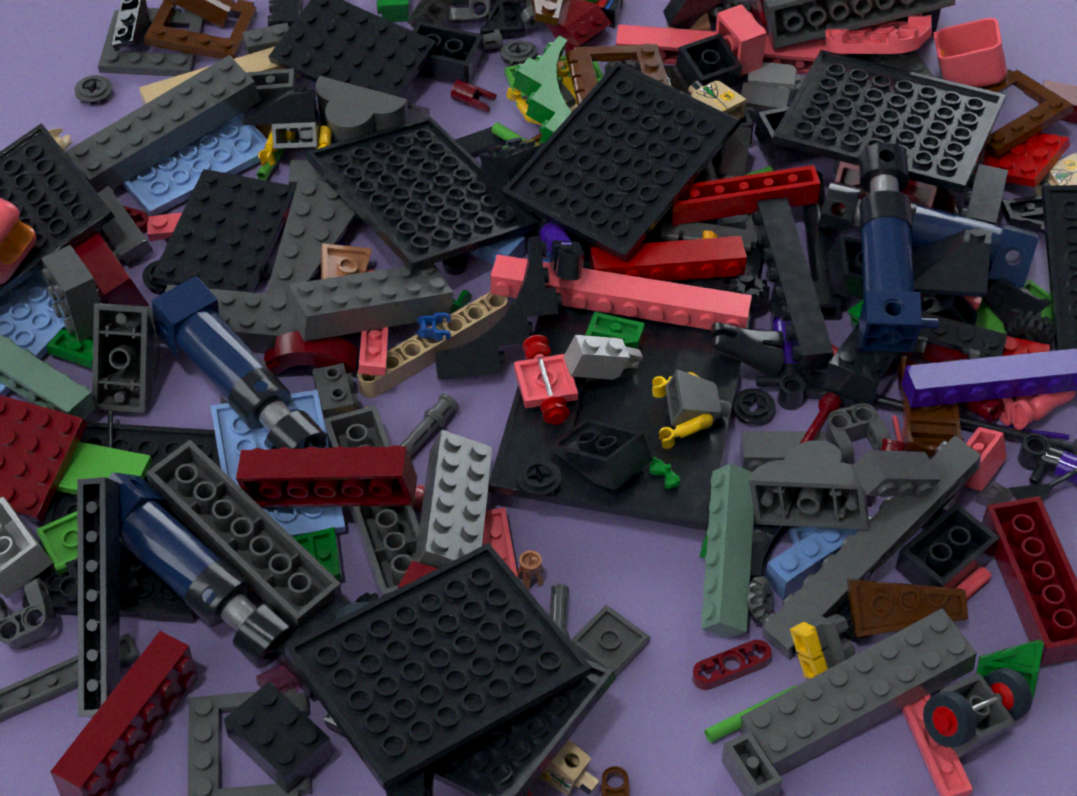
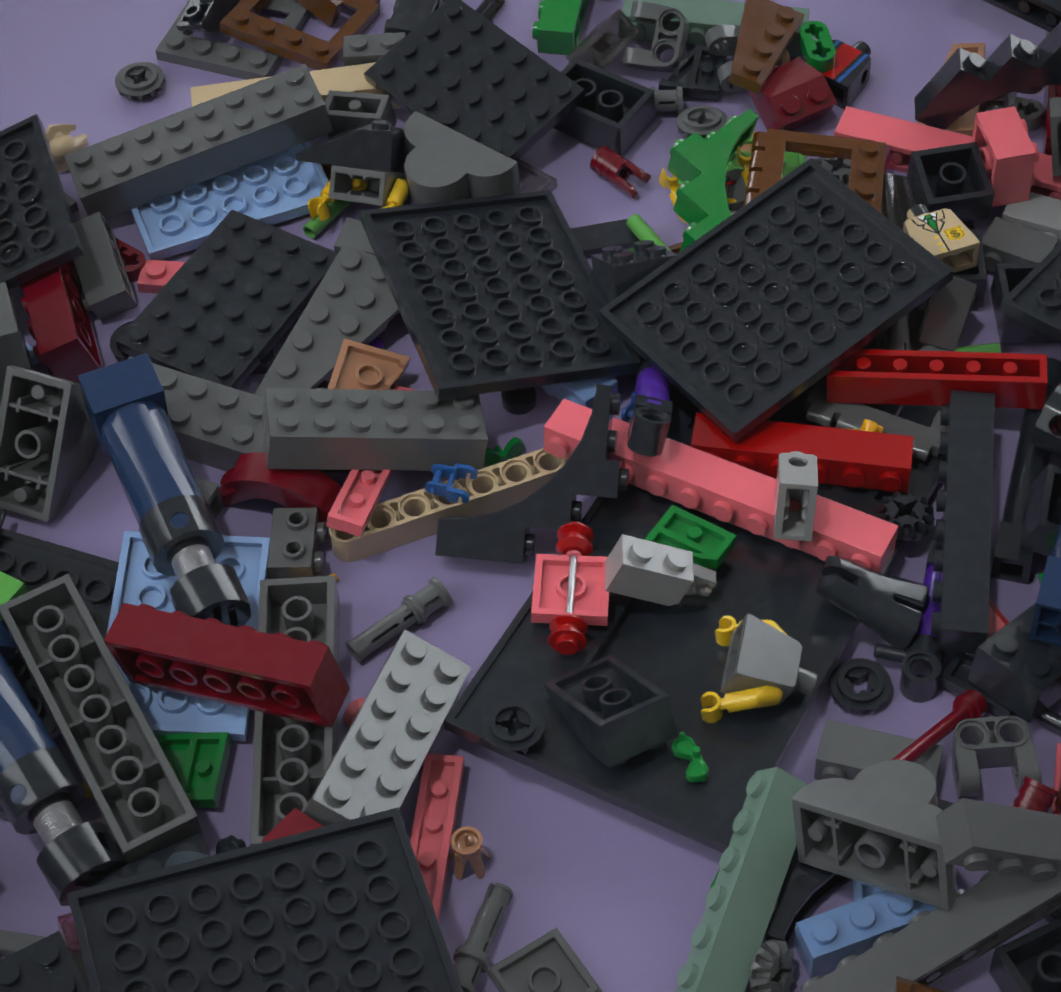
camera: 20 degrees right, 0 degrees up
(682, 278) = (795, 481): none -> light grey torso

